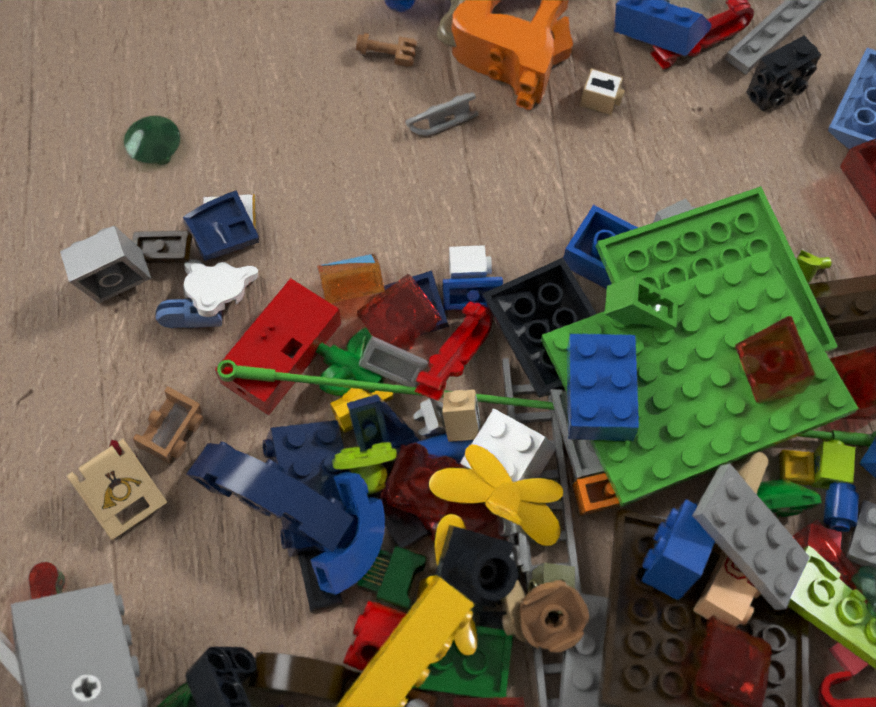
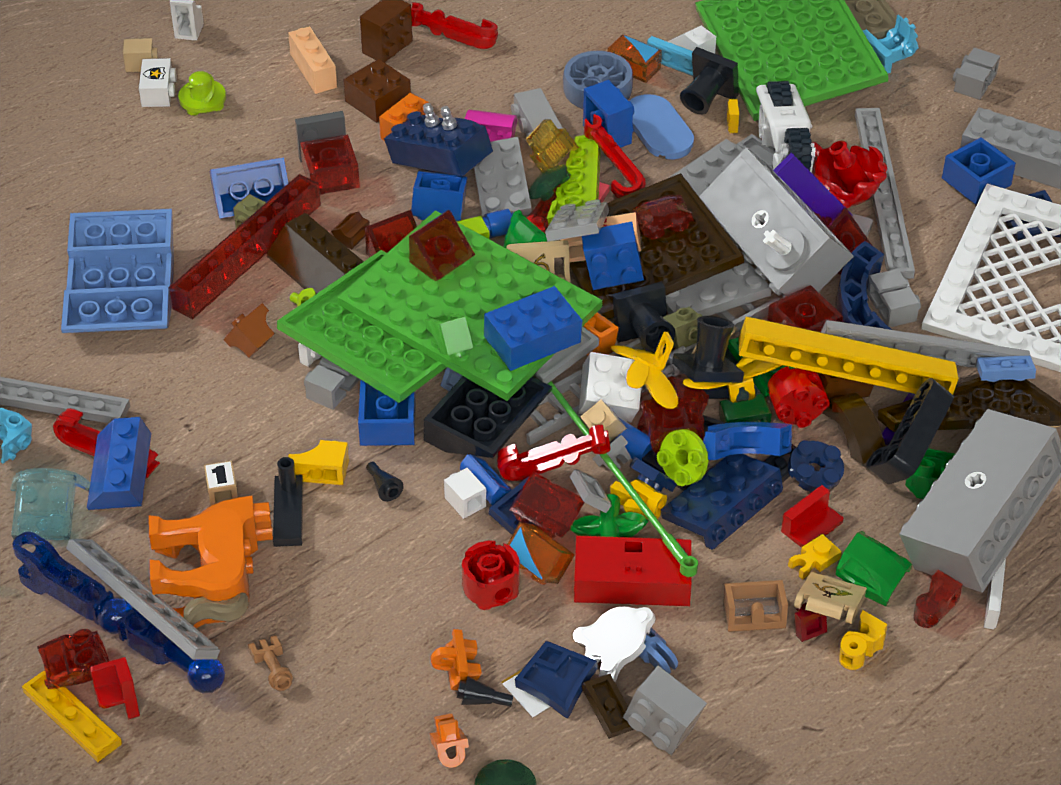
camera: 120 degrees left, 20 degrees down
(59, 487) = (863, 643): none -> yellow leg
(131, 565) = (872, 566): none -> green slope
(188, 530) = (816, 554): none -> yellow plate
(207, 104) = (446, 736): none -> orange hips
(228, 553) = (811, 518): none -> red panel
(249, 162) = (476, 693): none -> black cone
(273, 492) = (759, 501): dark blue brick -> none
(277, 162) = (456, 655): none -> orange hips
(287, 621) = (822, 454): none -> dark blue plate
(354, 227) = (490, 574): none -> red brick
(436, 115) = (326, 583): light grey piece -> none
(520, 212) = (387, 485): none -> black cone
(537, 605) = (706, 304): medium nougat plate -> none
(546, 133) = (287, 505): none -> black piece
(576, 178) = (324, 463): none -> yellow arch
(592, 552) = (641, 315): none -> black plant
(783, 73) = (128, 367): black brick -> none
(785, 191) = (250, 331): none -> dark orange brick

